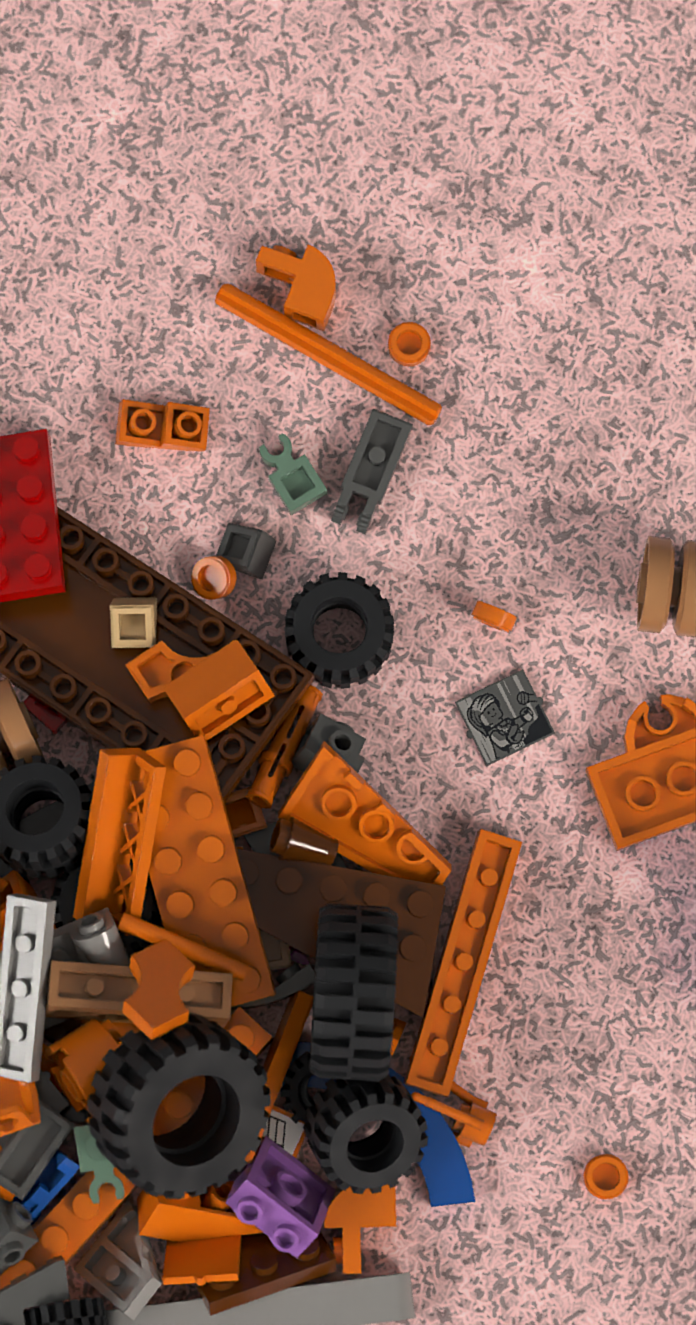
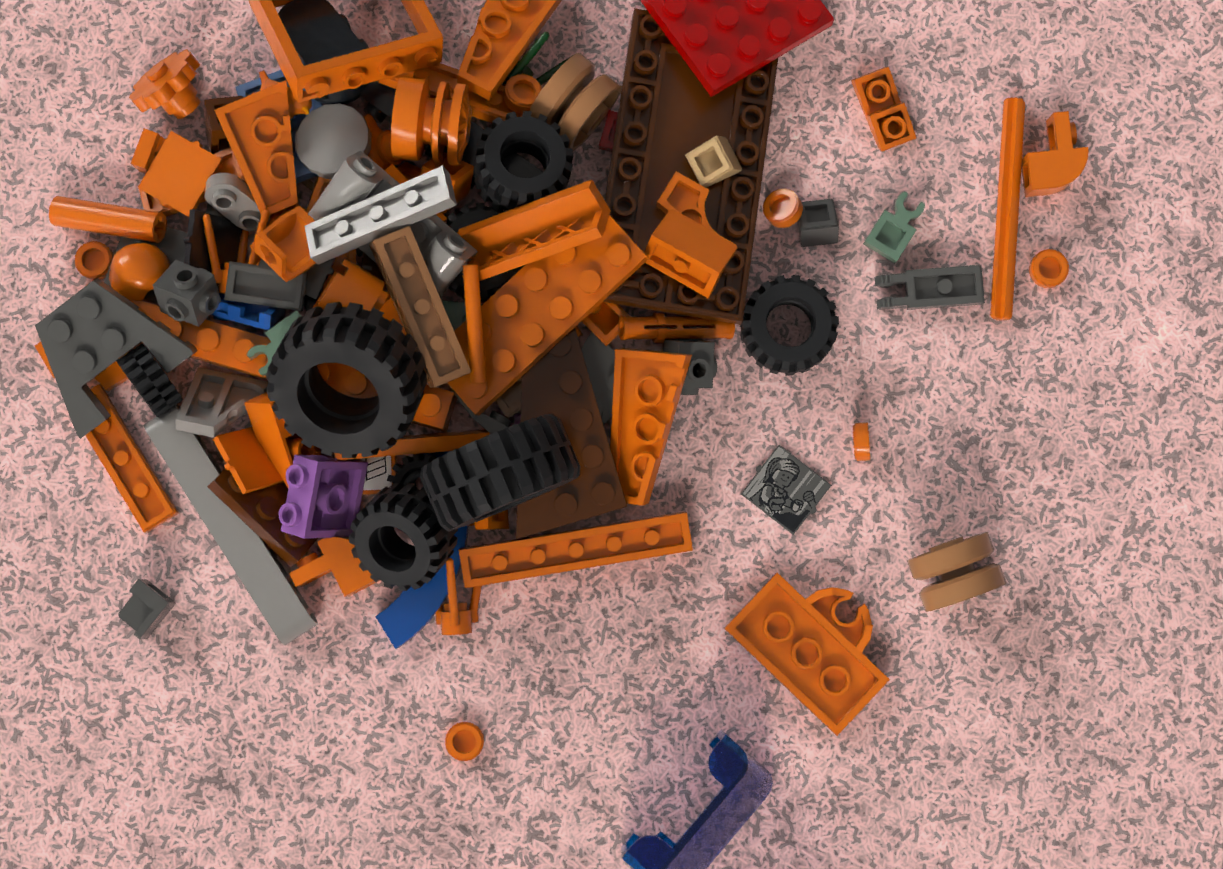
camera: 65 degrees right, 5 degrees up
(157, 1002) = (412, 321): orange tile -> none
(300, 842) = (604, 377): reddish brown cone -> none

